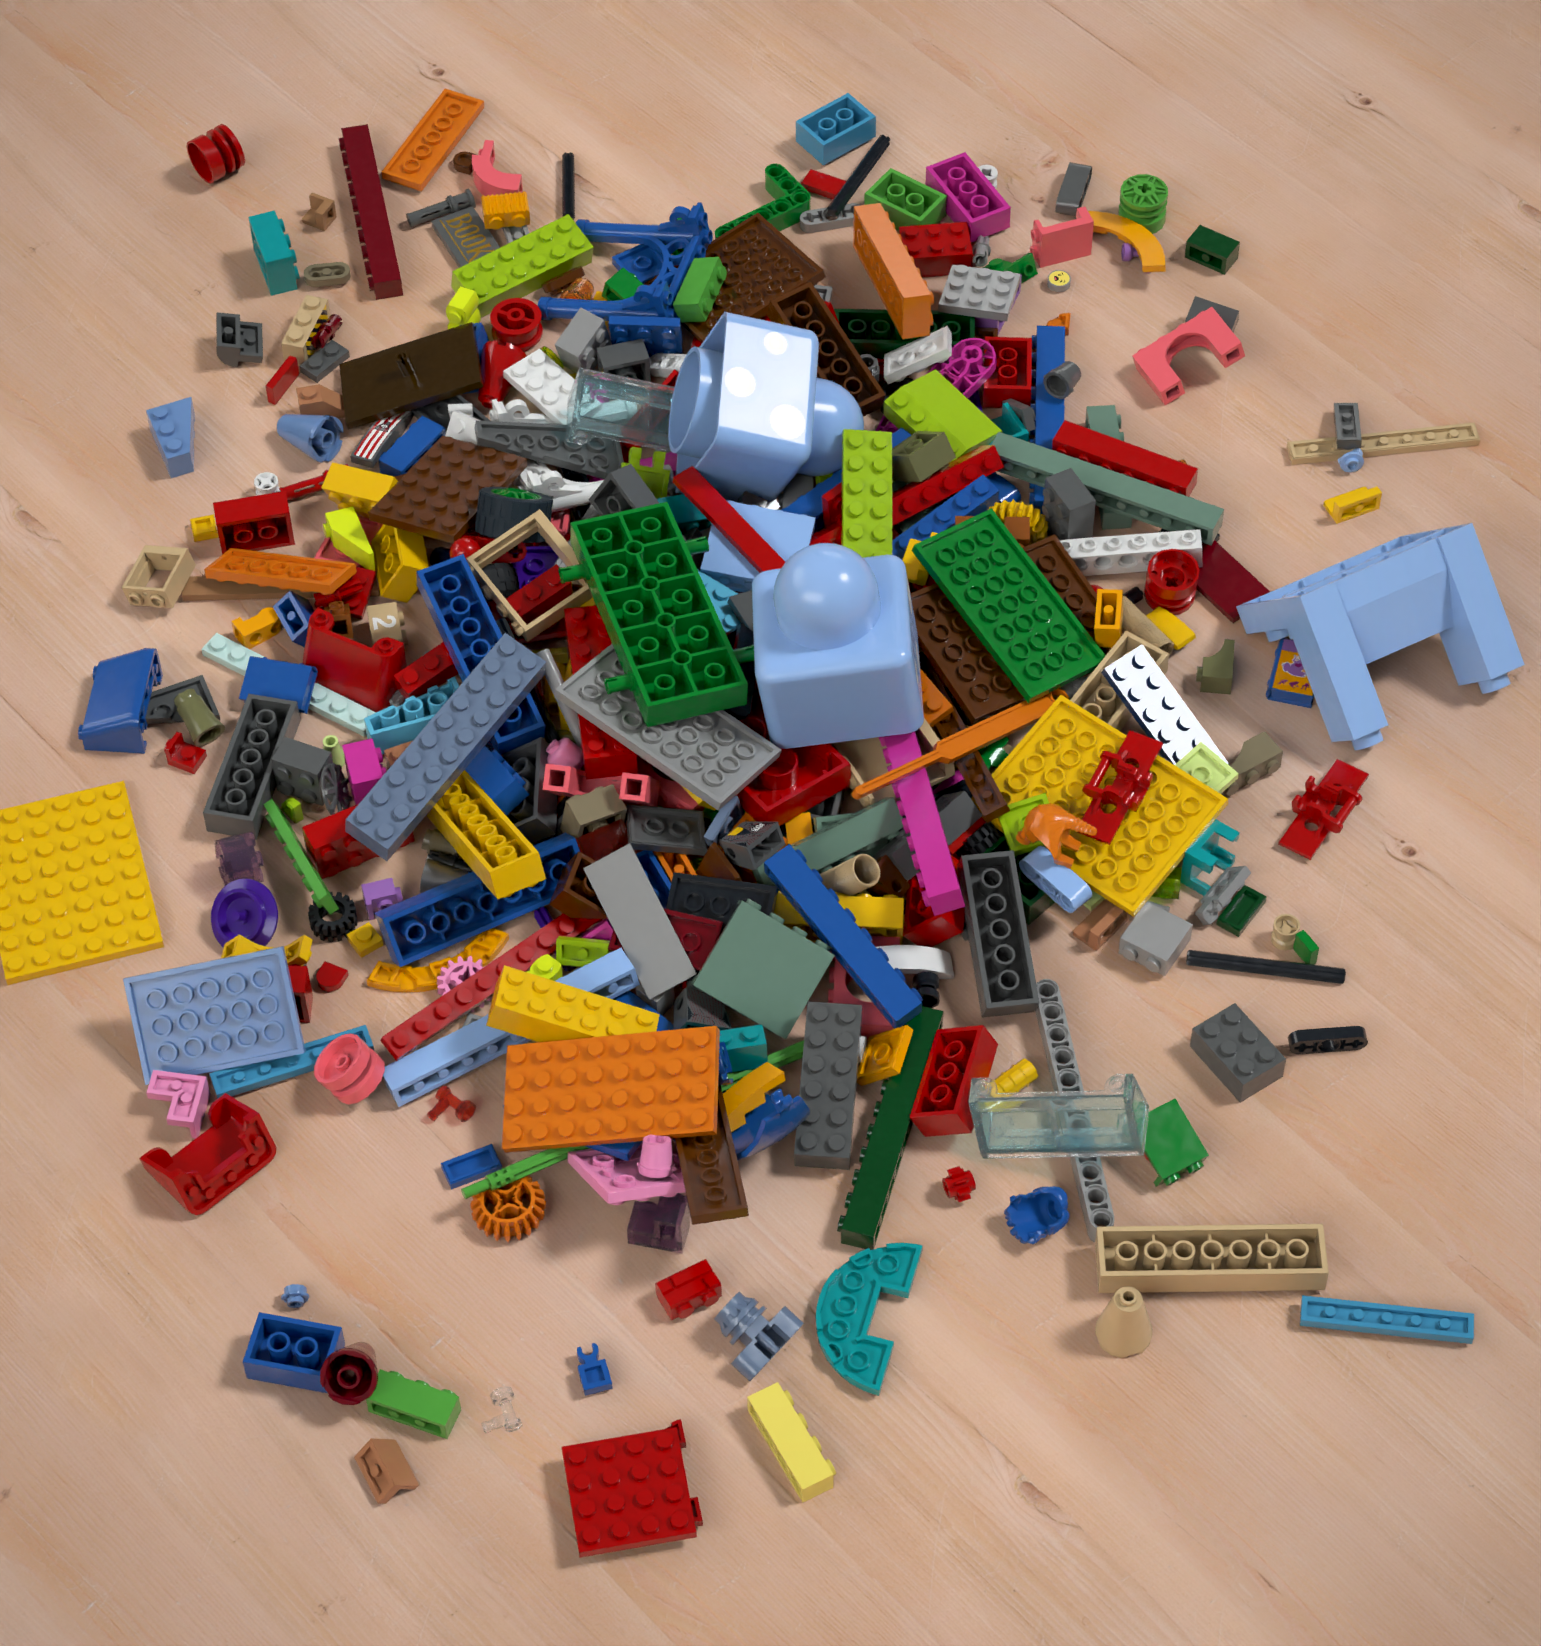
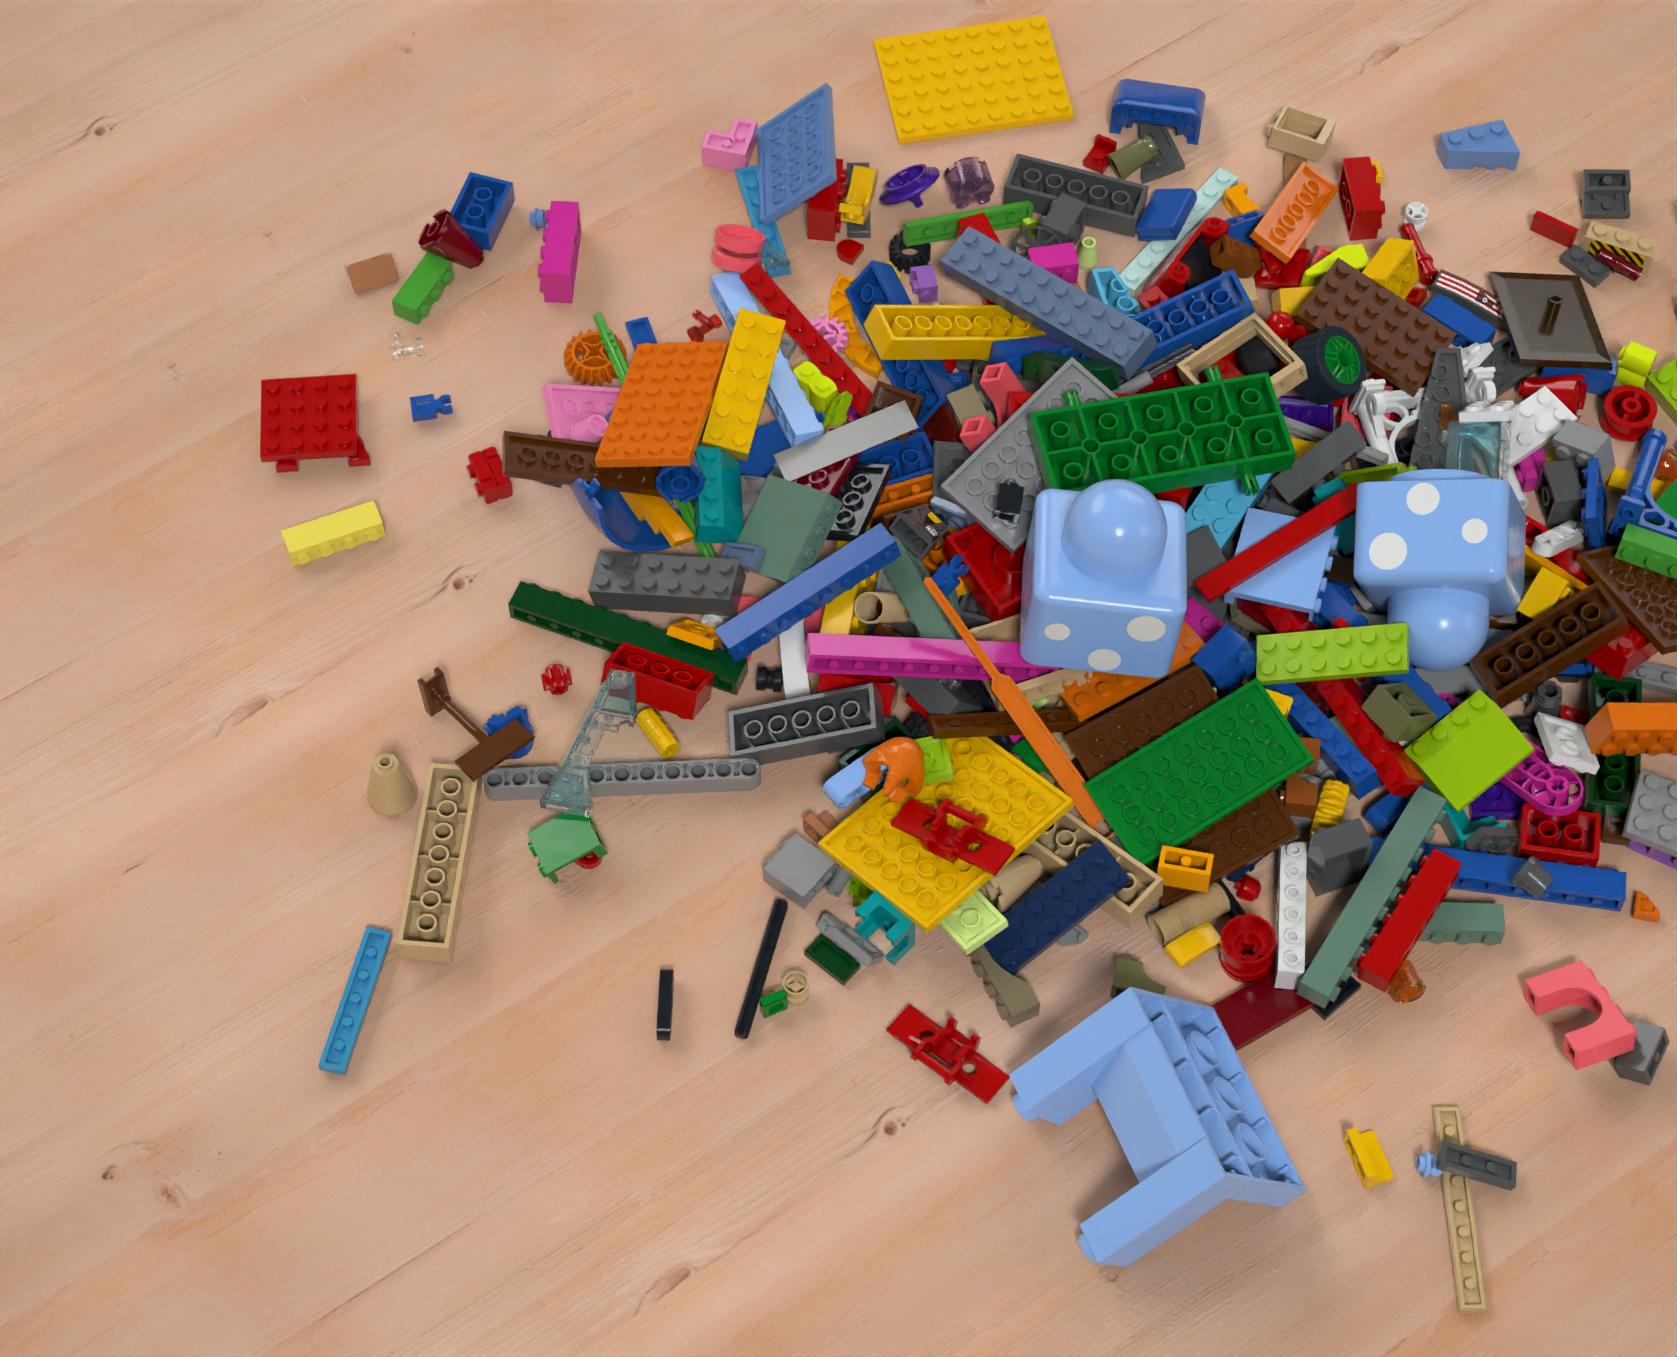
camera: 95 degrees right, 5 degrees up
(216, 1159) = (669, 166): red windscreen -> none
(312, 434) = (1474, 247): medium blue cone -> none
(320, 401) = (1521, 252): nougat slope -> none
(359, 1252) = (560, 252): none -> dark pink brick
(361, 1029) = (774, 257): none -> clear light blue tile
(465, 408) = (1505, 362): white plate -> none
(538, 723) = (1043, 365): none -> dark green brick
(556, 435) = (1447, 414): none -> clear orange tile
(566, 389) = (1483, 412): none -> white plate
(737, 743) = (1008, 502): none -> black brick
(762, 1338) = (436, 514): sand blue beam -> none
(789, 1014) = (750, 555): none -> sand blue tile
(810, 816) = (947, 575): none -> blue plate
(848, 1308) = (449, 587): teal plate -> none
(1073, 1214) = (492, 748): none -> reddish brown piece
(1237, 1052) = (660, 922): dark grey brick -> none

